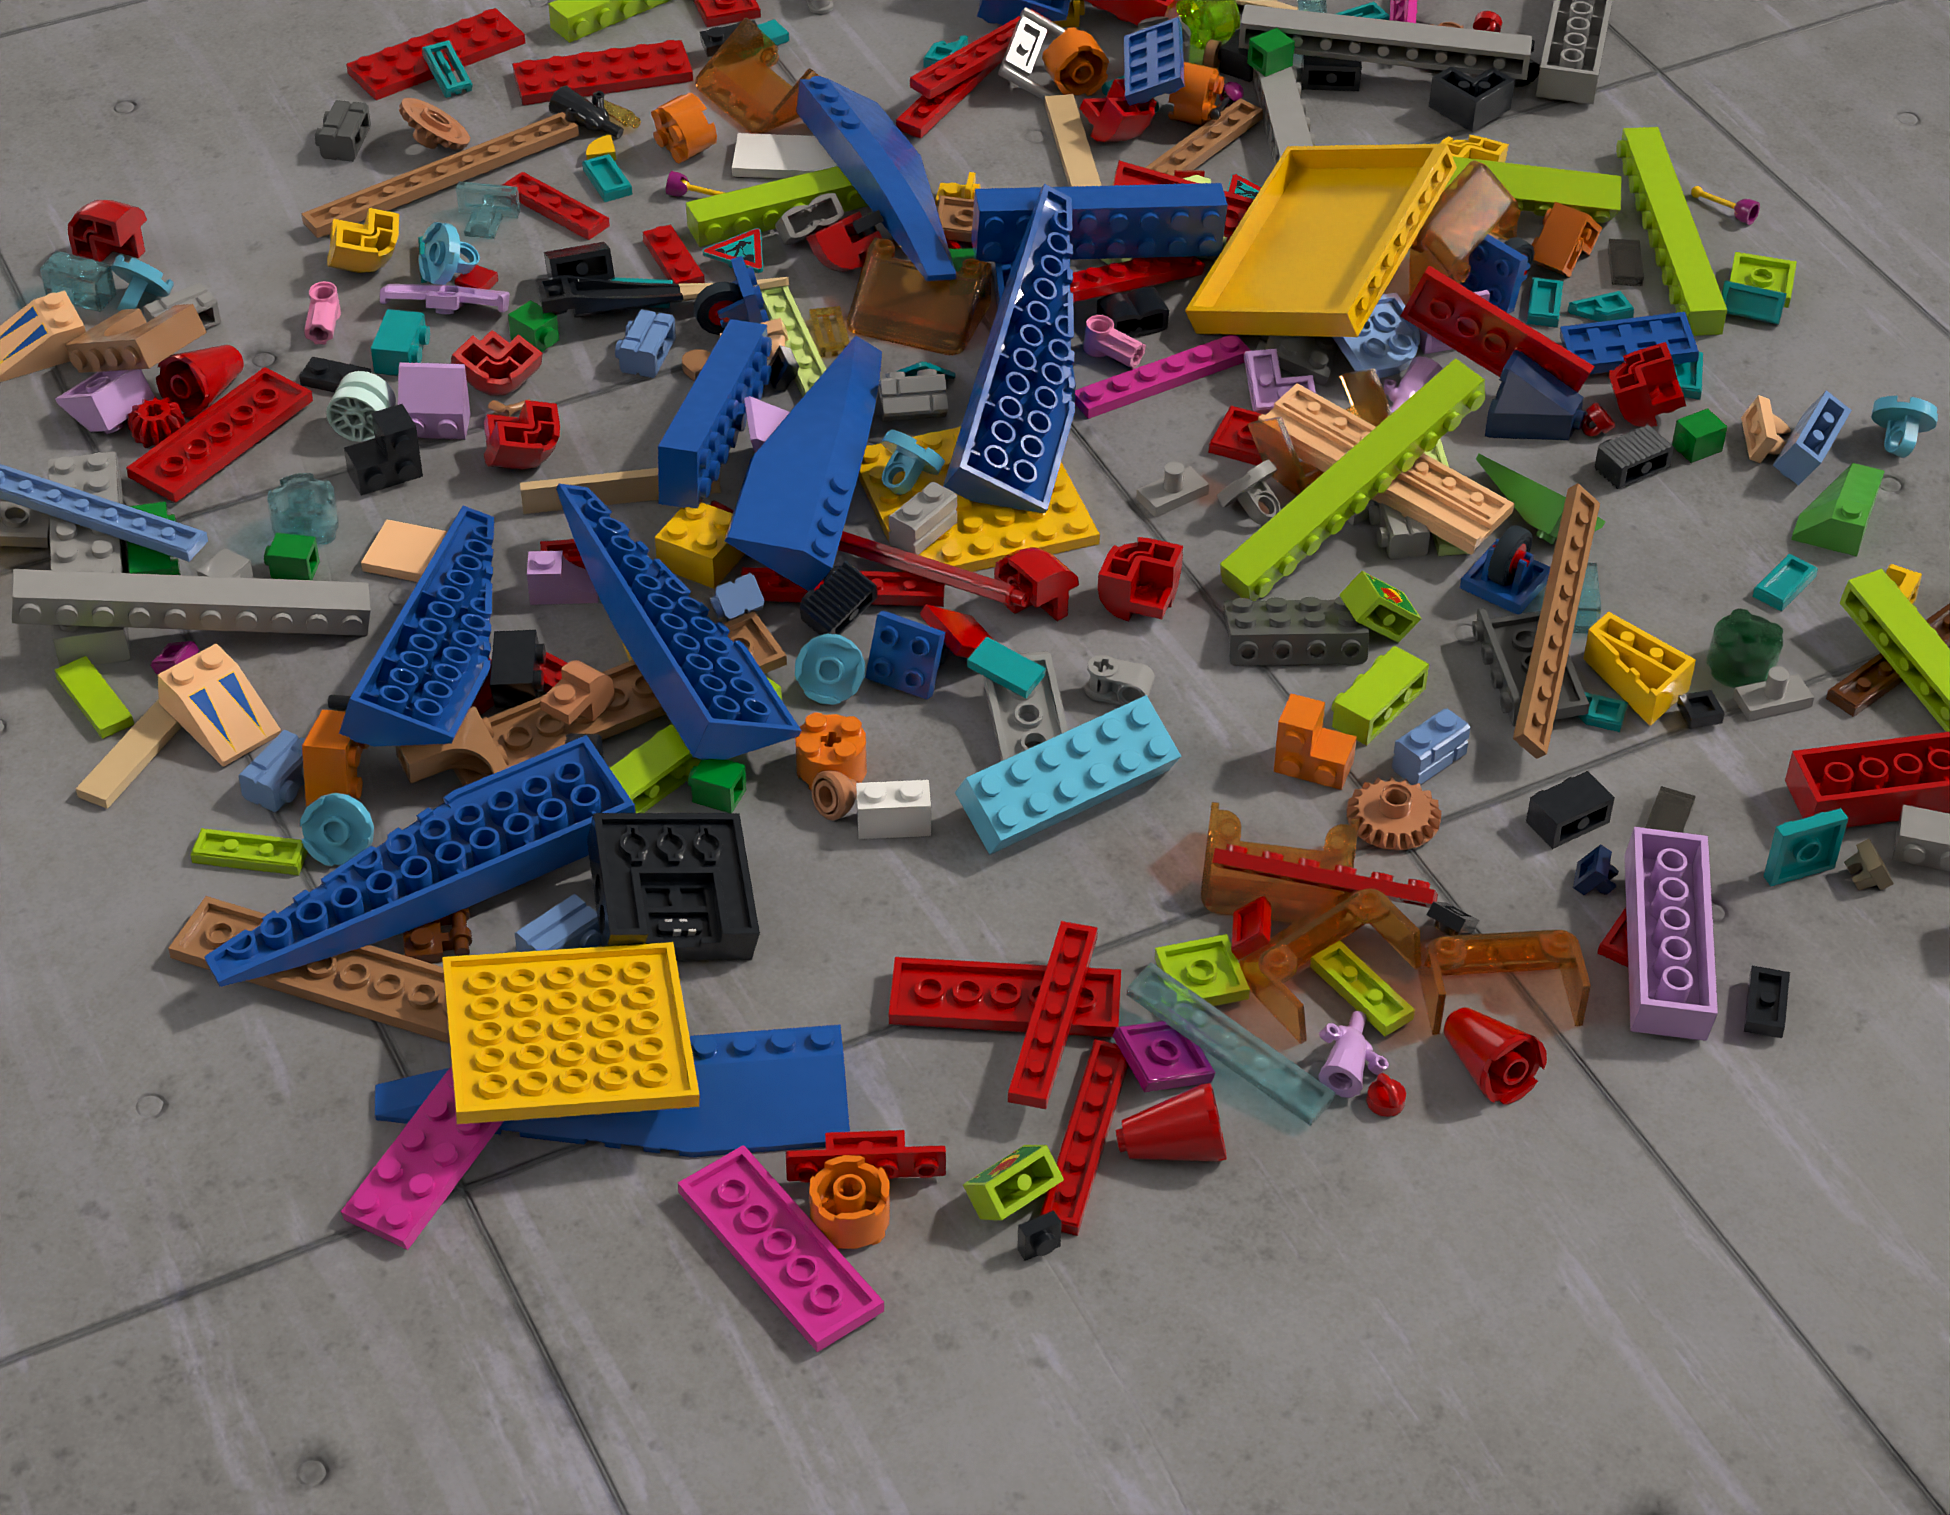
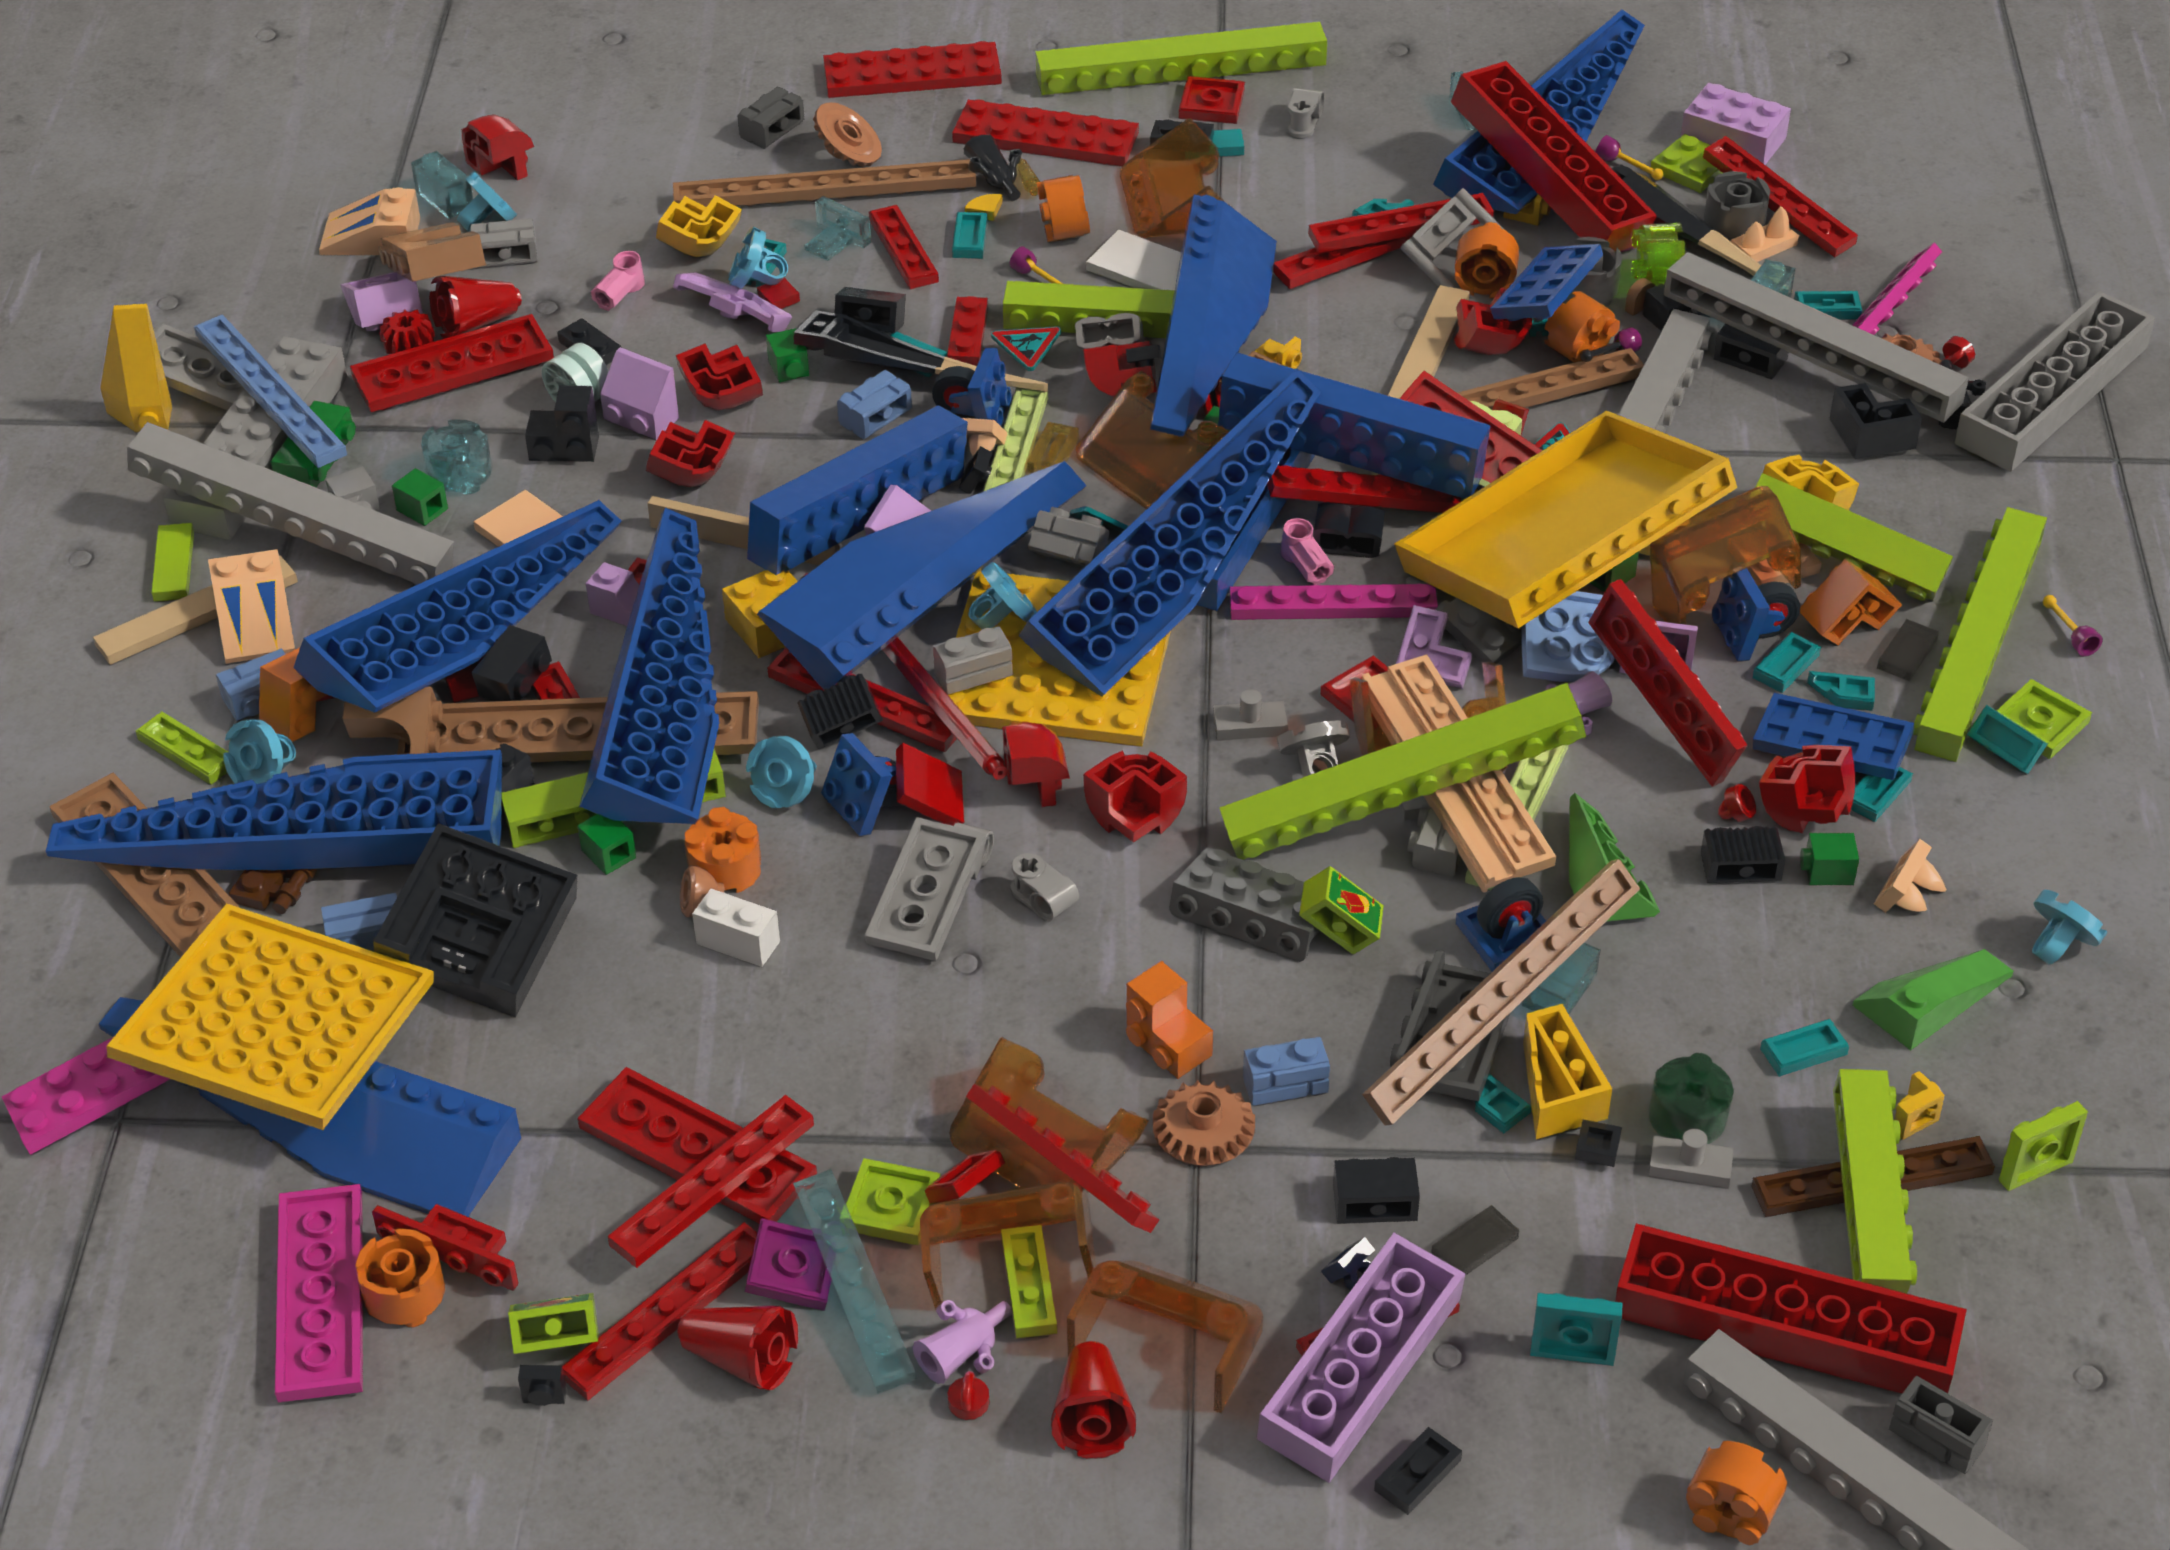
camera: 30 degrees right, 0 degrees up
(173, 654) = (259, 545): magenta tile -> none
(399, 340) = (662, 329): teal brick -> none
(454, 86) = (904, 106): teal tile -> none
(503, 410) = (698, 418): medium nougat hand -> none
(578, 693) = (536, 705): nougat brick -> none
(736, 598) = (748, 673): medium blue brick -> none
(1006, 667) = (930, 831): teal tile -> none
(1067, 774) = (910, 957): medium azure brick -> none
(1271, 52) = (1684, 309): green brick -> none
(1379, 695) = (1281, 999): lime brick -> none
(1451, 919) = (1160, 1249): black plate -> none
(1533, 404) = (1672, 761): dark blue slope -> none
(1812, 438) = (1947, 905): medium blue brick -> none
(1872, 867) = (1643, 1378): dark tan tile -> none

